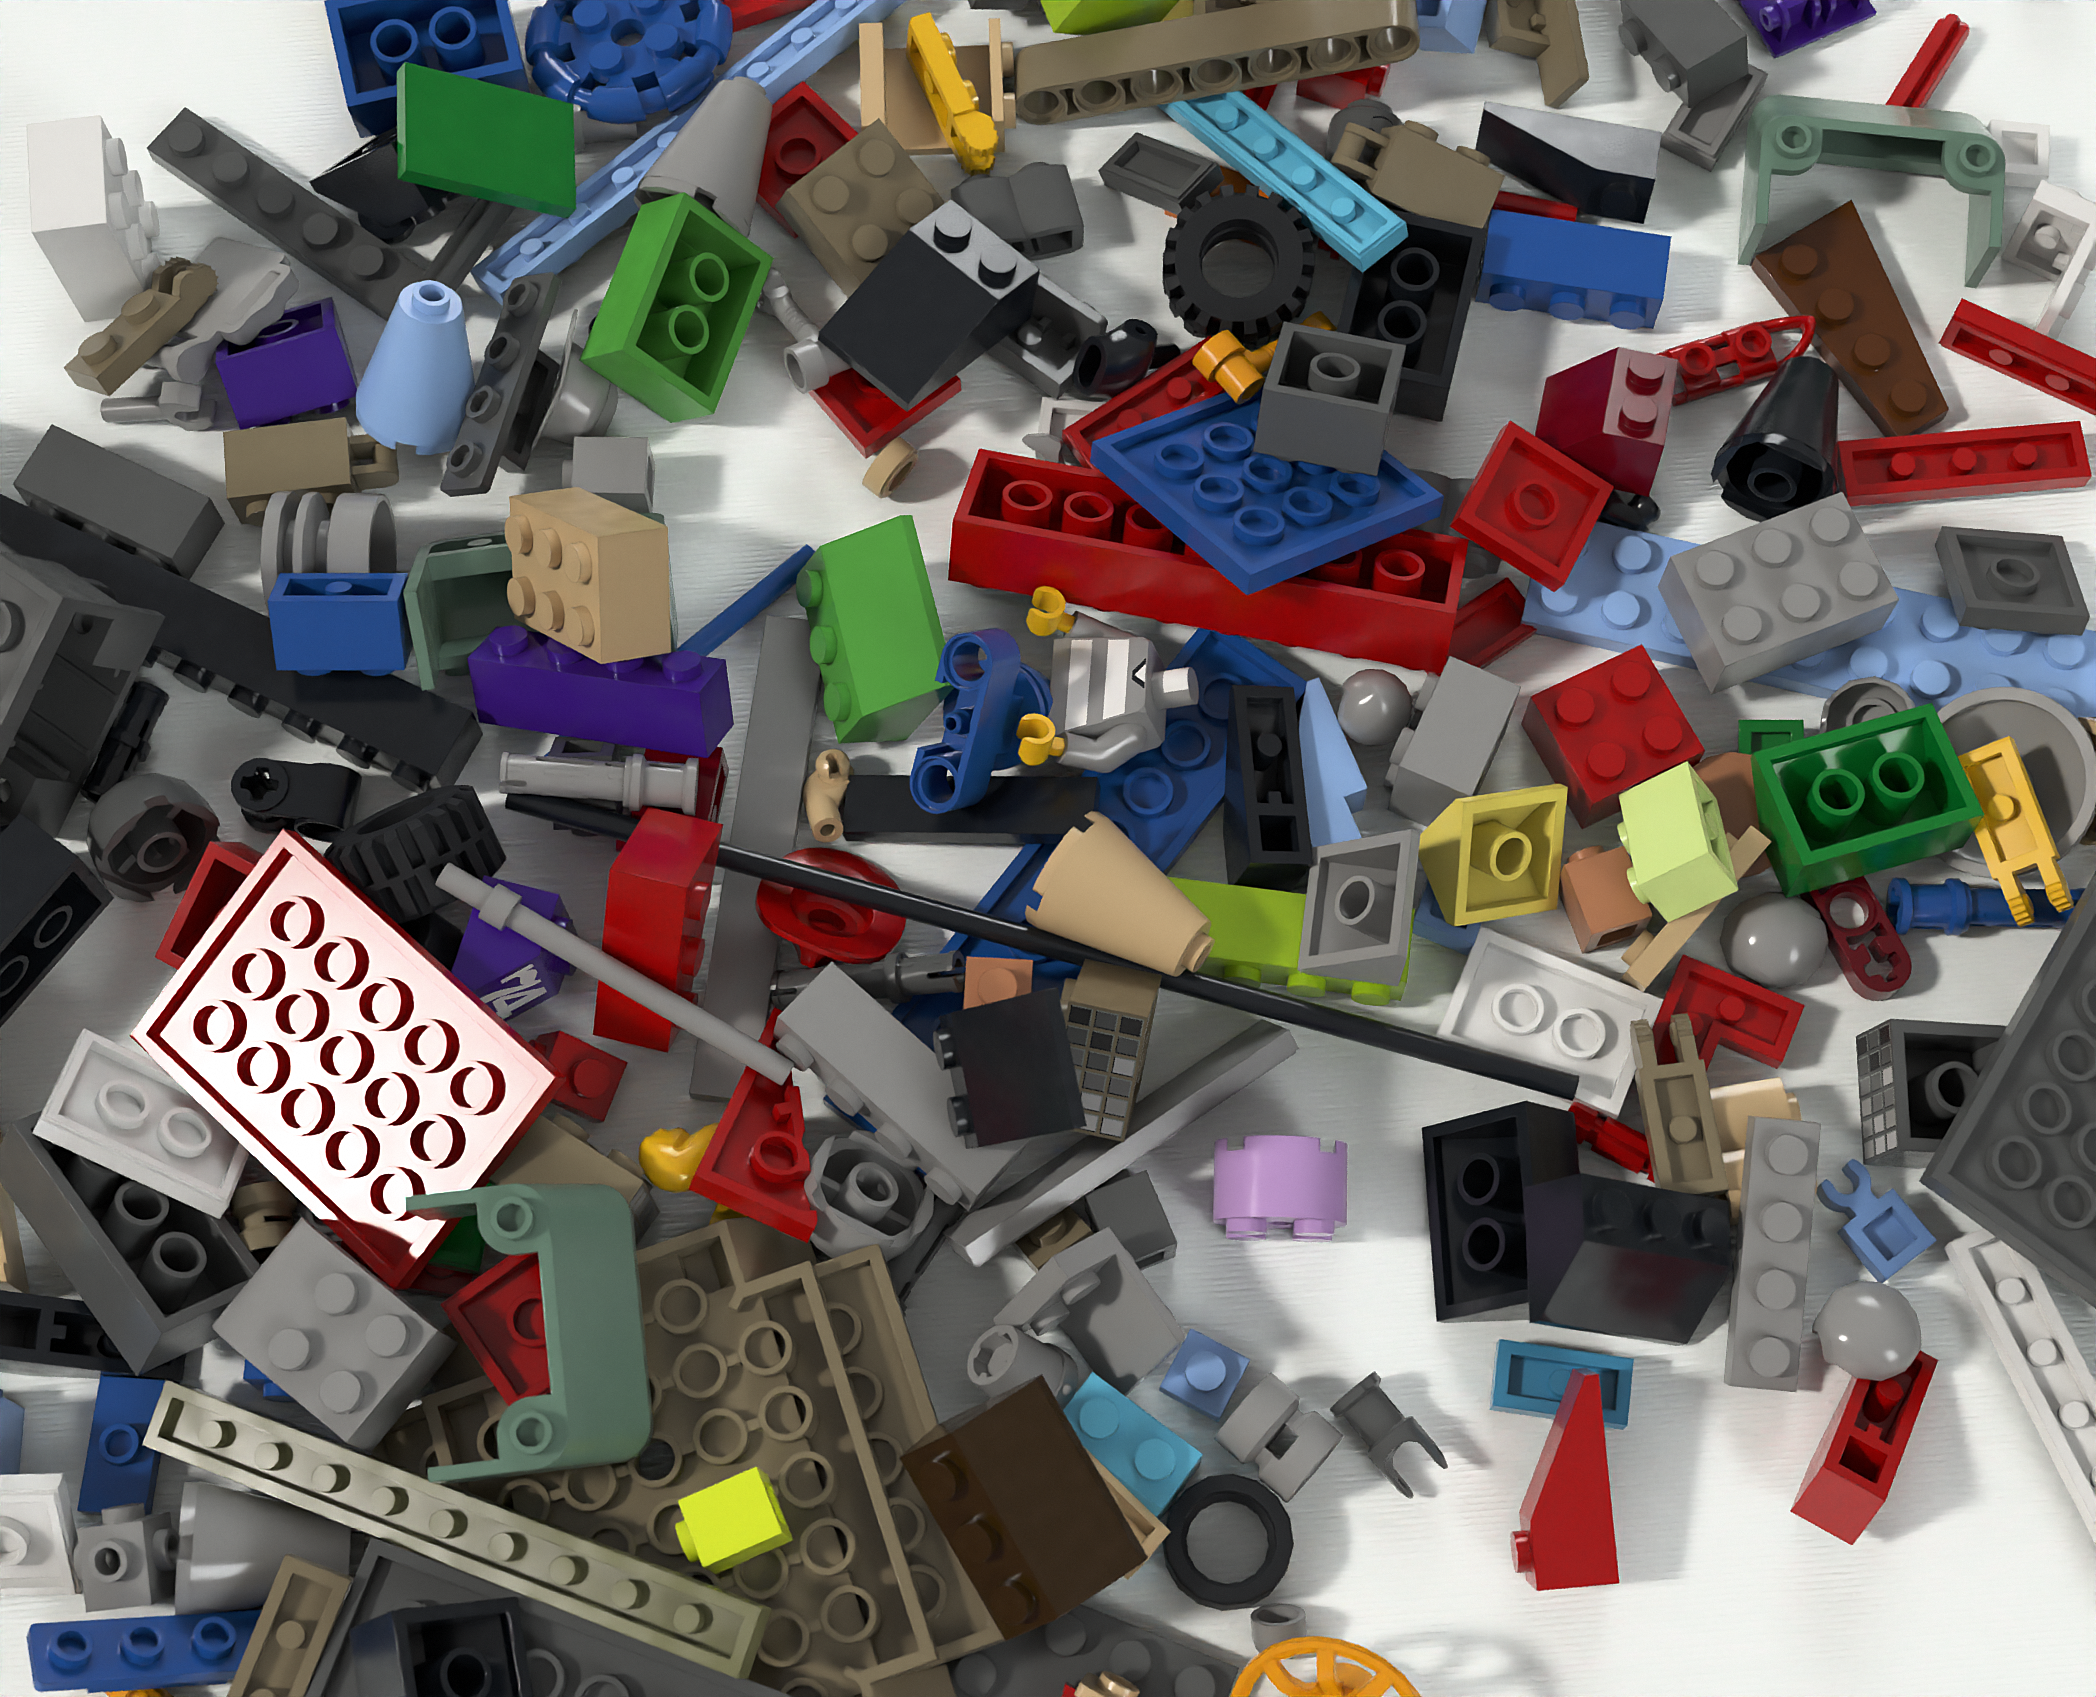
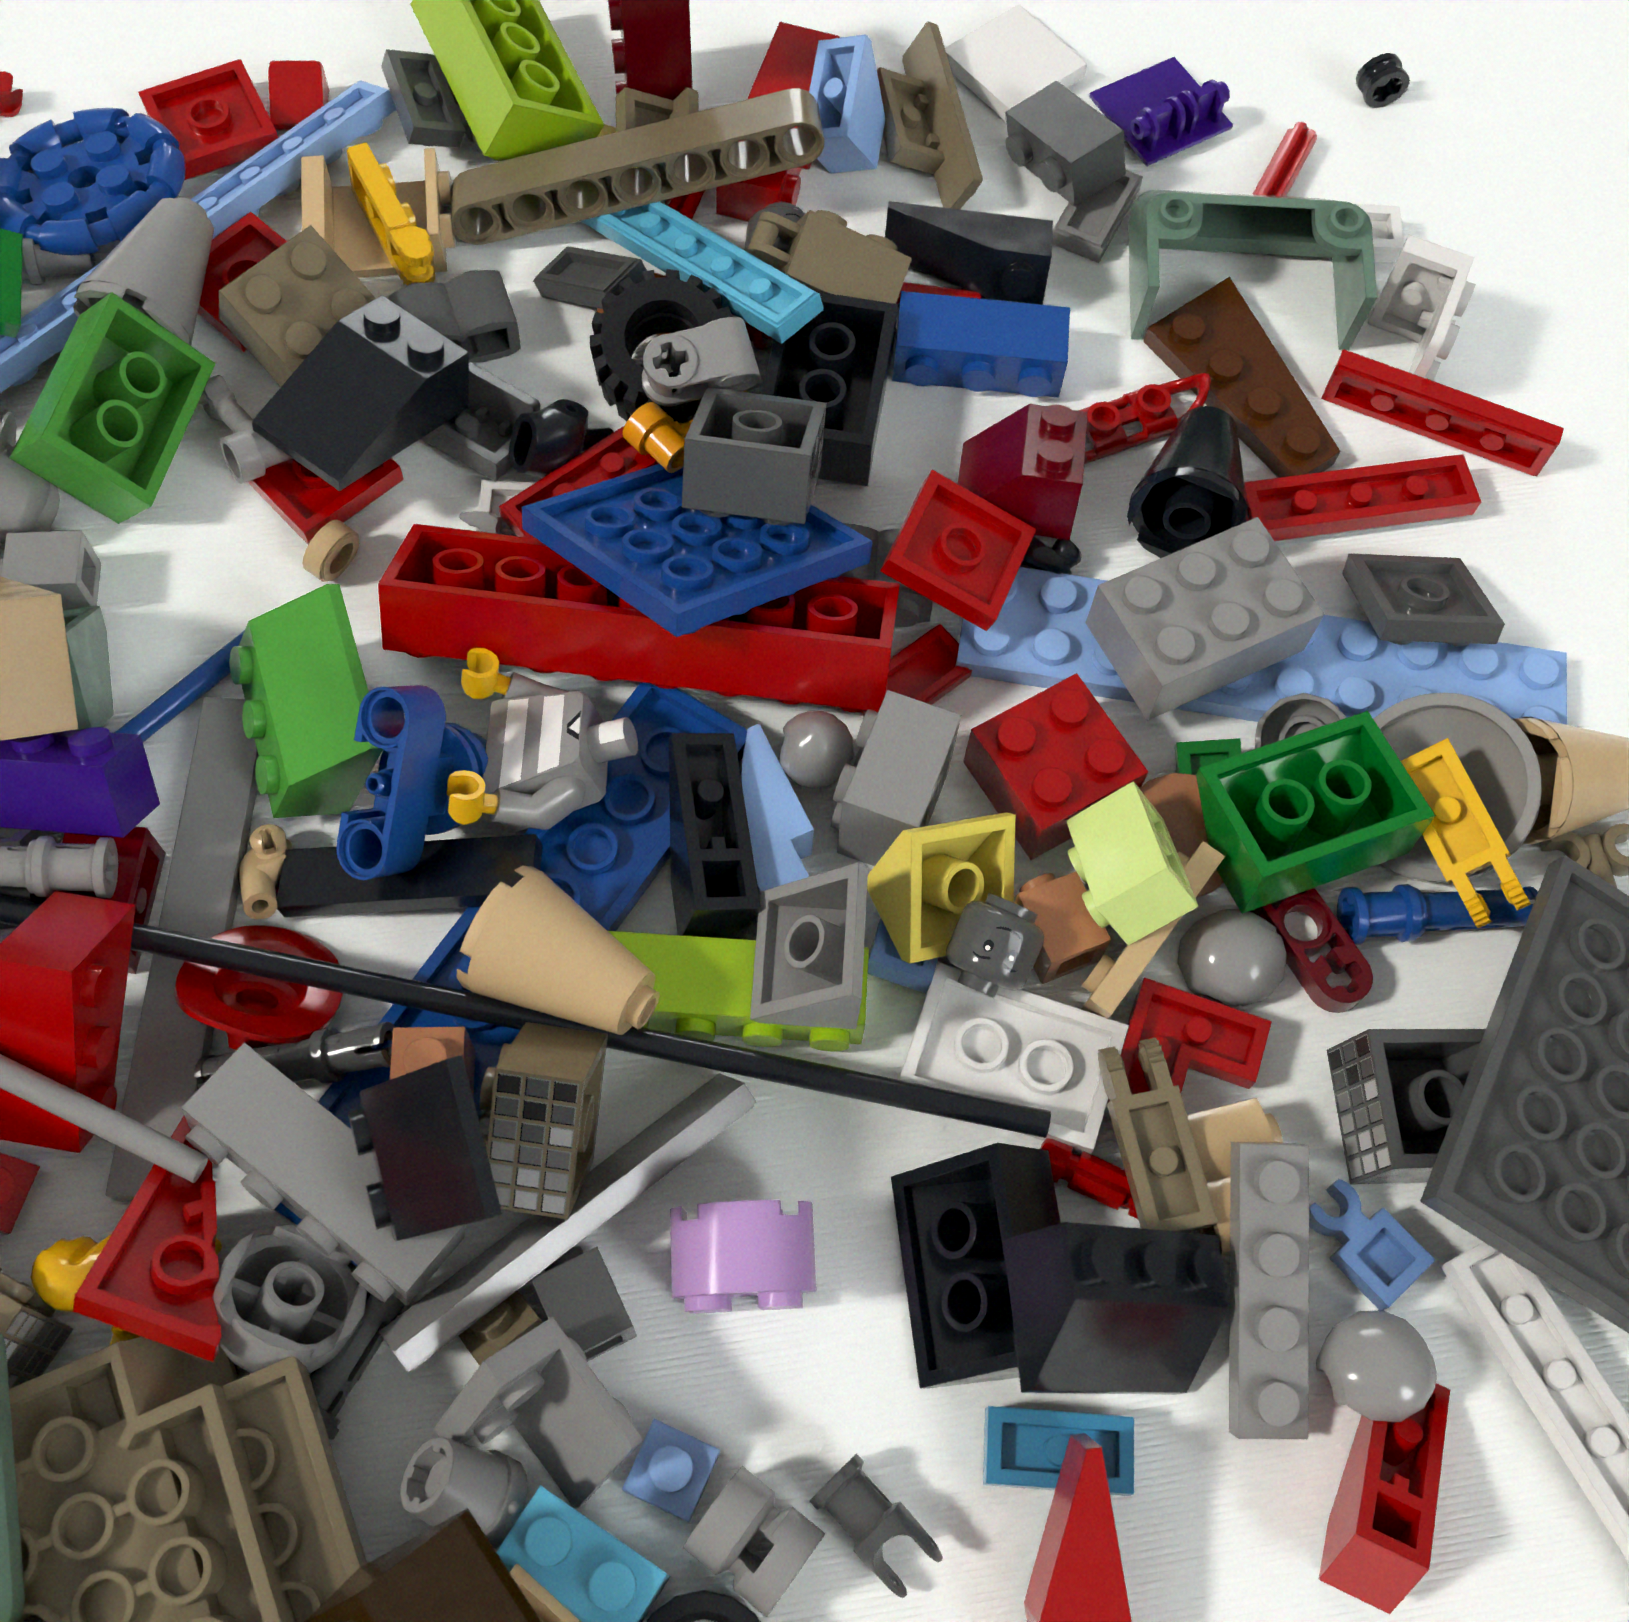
camera: 10 degrees left, 5 degrees down
(1288, 290) = (704, 357): none -> light grey piece
(1537, 914) = (995, 945): none -> dark grey head

